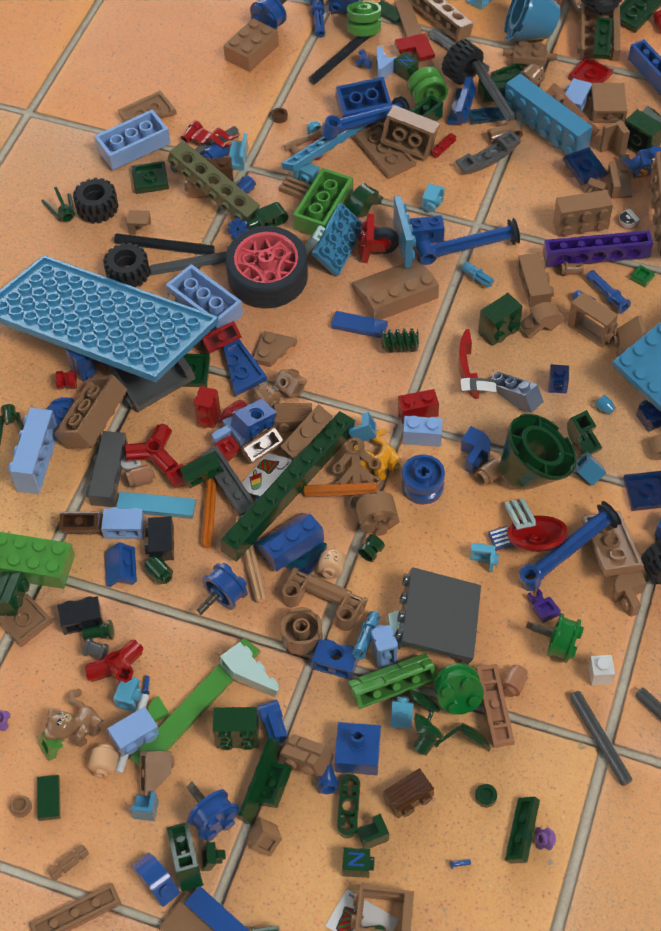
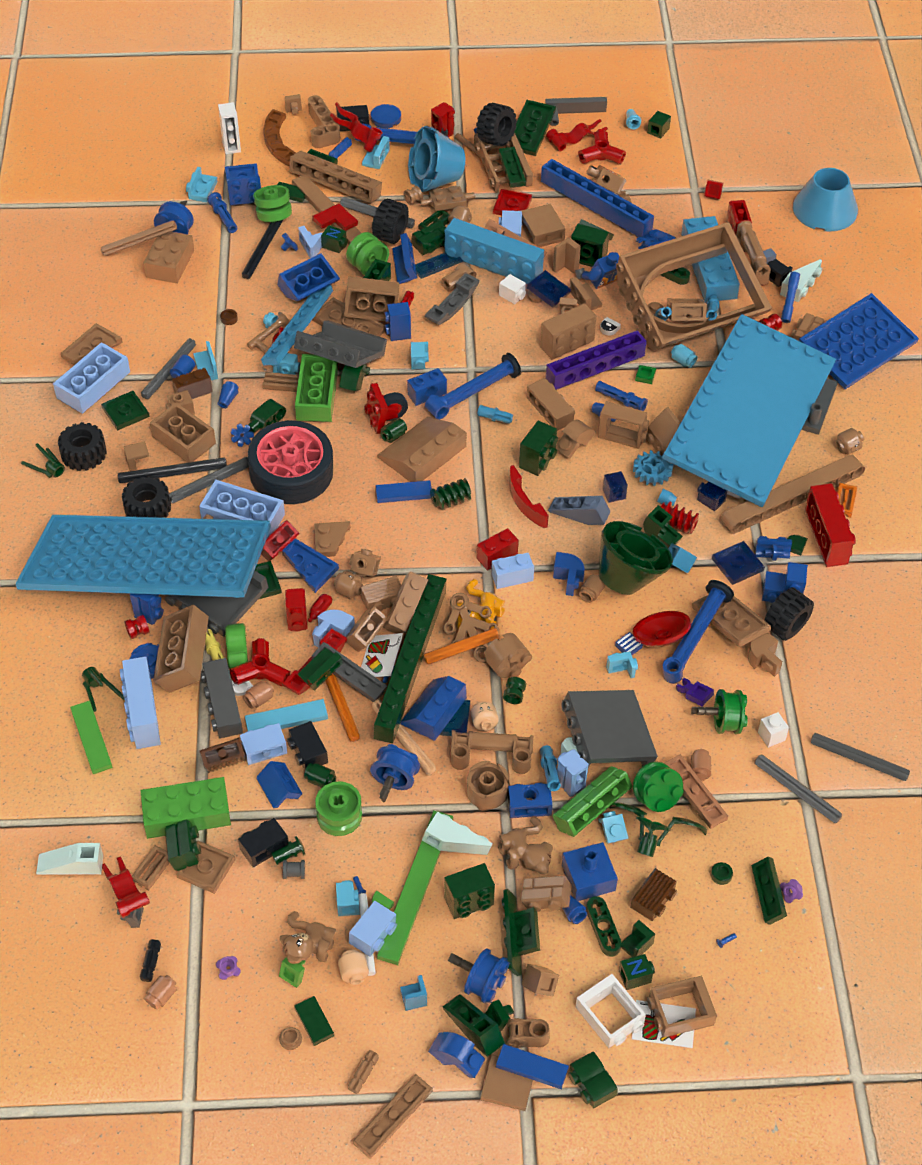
camera: 25 degrees left, 5 degrees down
(116, 663) = (323, 874): red piece -> none
(122, 418) = (212, 646): none -> light yellow pin
(141, 422) = (236, 644): none -> bright green animal
(154, 769) = (407, 958): medium nougat slope -> none
(159, 607) = (338, 808): none -> bright green wheel
(185, 153) = (198, 396): olive brick -> none
(186, 212) = (183, 432): none -> medium nougat brick
(202, 136) = (154, 354): red flag -> none
(225, 881) = (526, 1030): none -> medium nougat piece
(230, 21) = (138, 238): none -> medium nougat axle
(253, 419) = (350, 605): blue brick -> none
(271, 717) = (500, 876): blue piece -> none
(310, 870) = (599, 992): none -> white window
(314, 239) = (327, 421): light aqua tile -> none
(314, 714) = (534, 856): none -> medium nougat animal
(335, 125) = (298, 310): blue piece -> none
(338, 239) = (347, 417): dark azure tile -> none
(363, 169) = (342, 344): none -> dark grey panel
(366, 430) = (460, 585): dark azure panel -> none
(376, 263) = (393, 430): none -> dark green brick
(405, 231) = (417, 398): dark azure tile -> none
(423, 479) = (534, 613): blue wheel -> none
(426, 160) = (398, 321): none -> blue brick
(478, 384) = (545, 512): white sticker -> none
(493, 90) = (432, 240): dark grey axle -> none
(498, 42) = (413, 195): none -> medium nougat wheel
(516, 505) = (639, 614): light aqua tile -> none
(550, 157) = (512, 289): none -> white brick
(571, 268) = (575, 386): medium nougat pin -> none
(602, 372) = (652, 468): none -> dark azure gear
(607, 429) = (680, 518): none -> red piece

